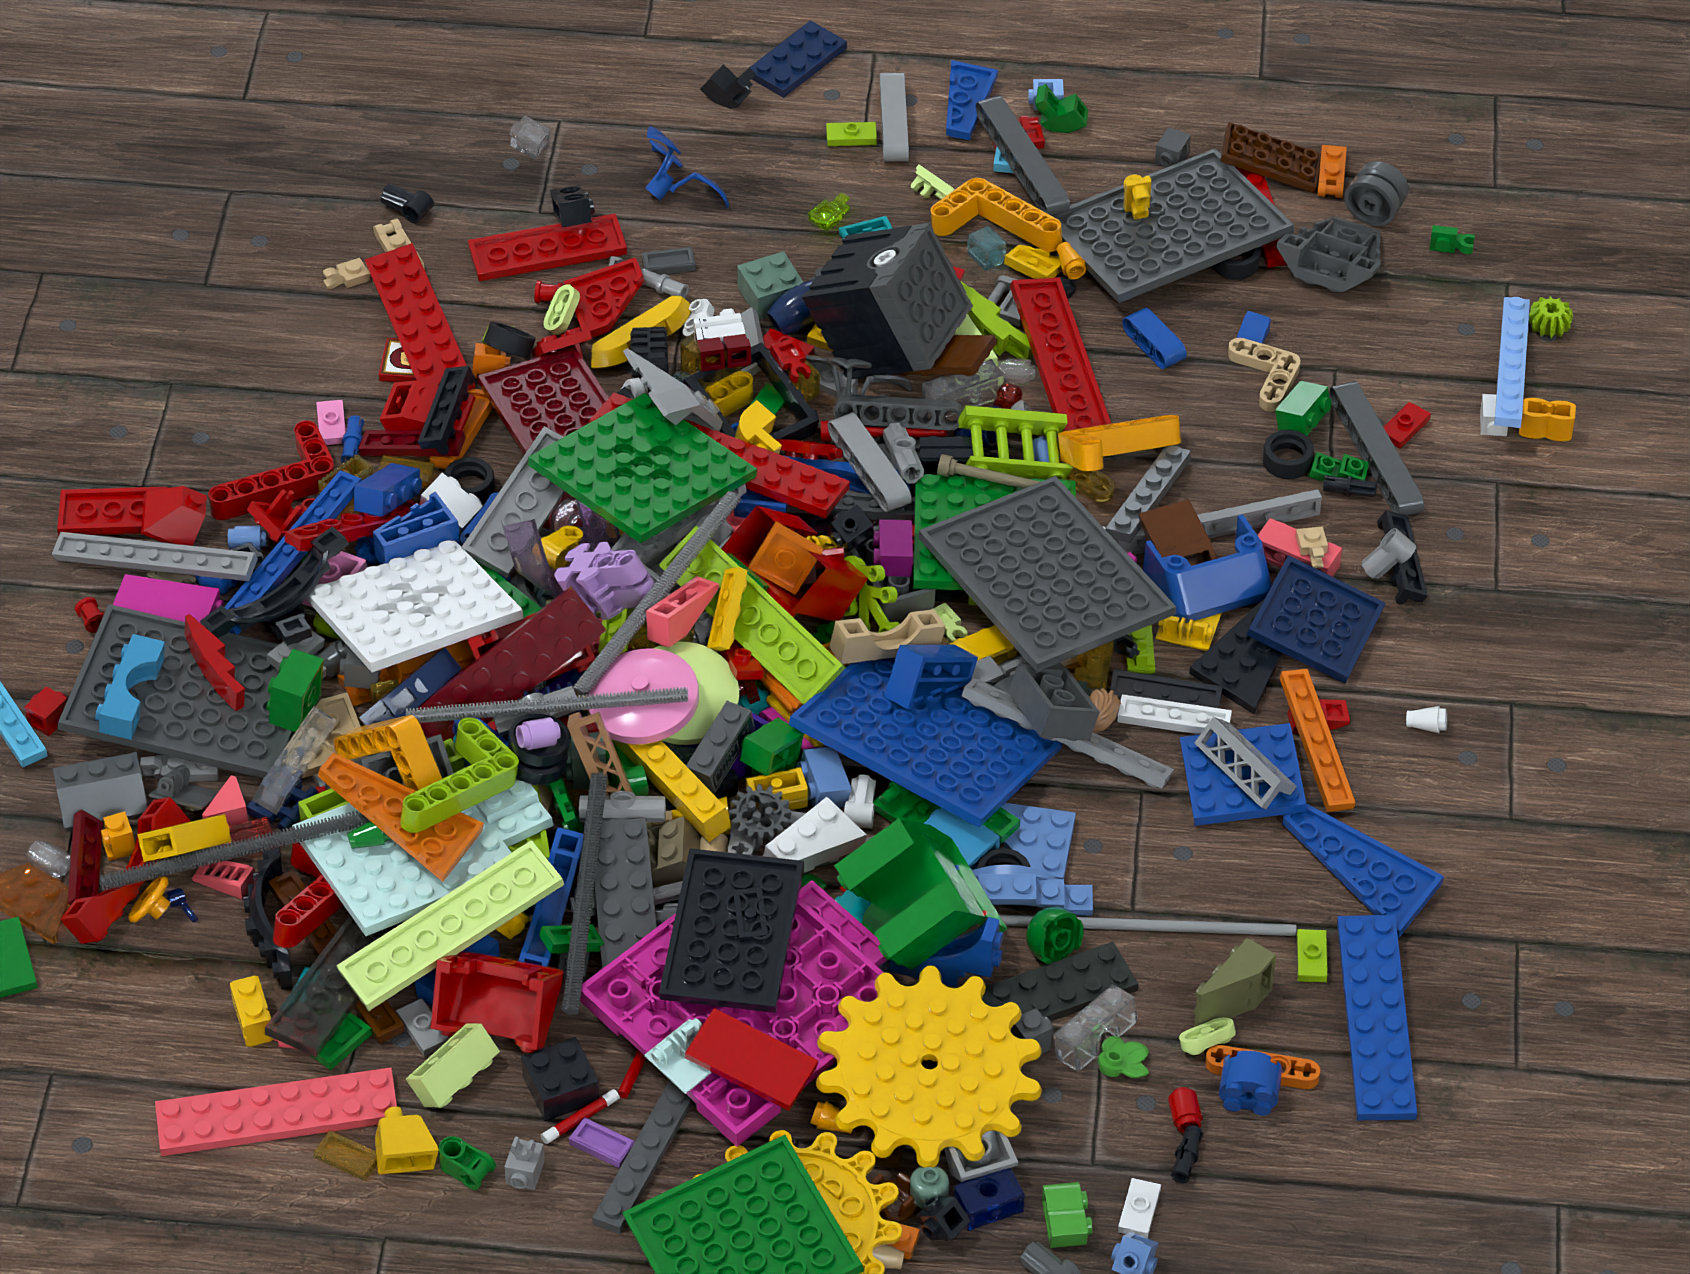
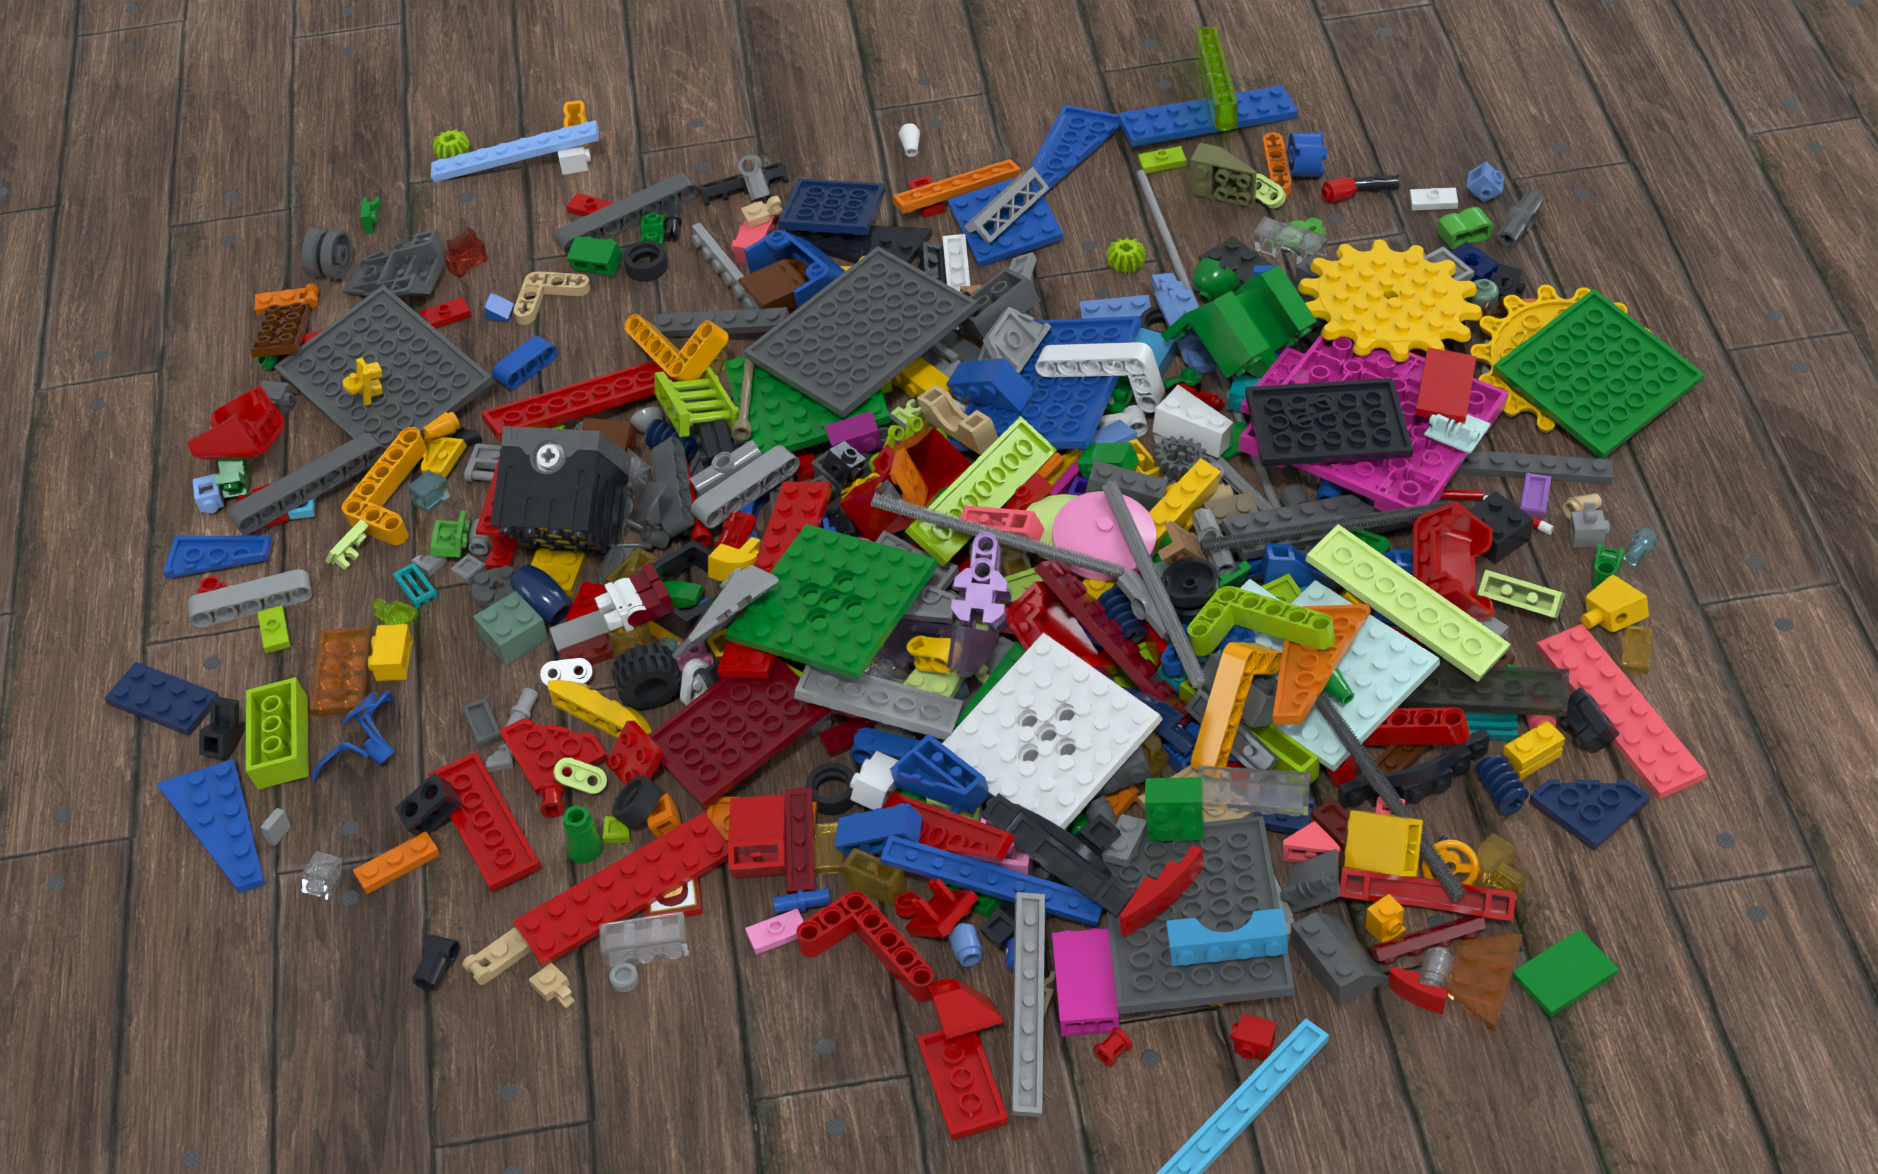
camera: 100 degrees left, 0 degrees up
(44, 829) = (1407, 985): none -> red slope
(135, 934) = (1495, 863): none -> clear yellow brick
(168, 1039) = (1589, 807): none -> dark blue plate
(222, 972) = (1502, 783): none -> dark blue piece
(265, 1066) = (1588, 721): none -> black brick
(334, 320) = (624, 977): none -> light grey tile
(360, 332) = (644, 939): none -> clear brick
(446, 408) = (765, 802): black hinge -> none
(481, 1206) = (1641, 544): none -> clear light blue cone
(490, 299) = (582, 838): none -> green plant
(531, 192) = (396, 862): none -> orange plate
(538, 733) = (1200, 566): lavender brick -> none
(561, 1172) = (1577, 503): none -> tan cone
(602, 116) = (275, 826): none -> light grey tile
(644, 85) = (218, 816): none -> blue wing
(709, 119) = (277, 733): none -> lime brick
(727, 609) = (987, 494): yellow plate -> none
(773, 171) = (341, 670): none -> clear orange plate
(778, 204) = (391, 652): none -> yellow brick
(791, 357) = (632, 562): red plate -> none
(900, 767) = (1107, 360): none -> white beam
(922, 94) = (209, 584): none -> red plate
(990, 707) = (1014, 337): none -> light grey wing
(1111, 119) = (240, 428): none -> red windscreen
(1136, 871) = (1126, 256): none -> lime gear
(1263, 290) = (447, 313): none -> red plate
(1347, 306) = (464, 252): none -> clear red piece
(1418, 1016) = (1216, 78): none -> clear neon green brick

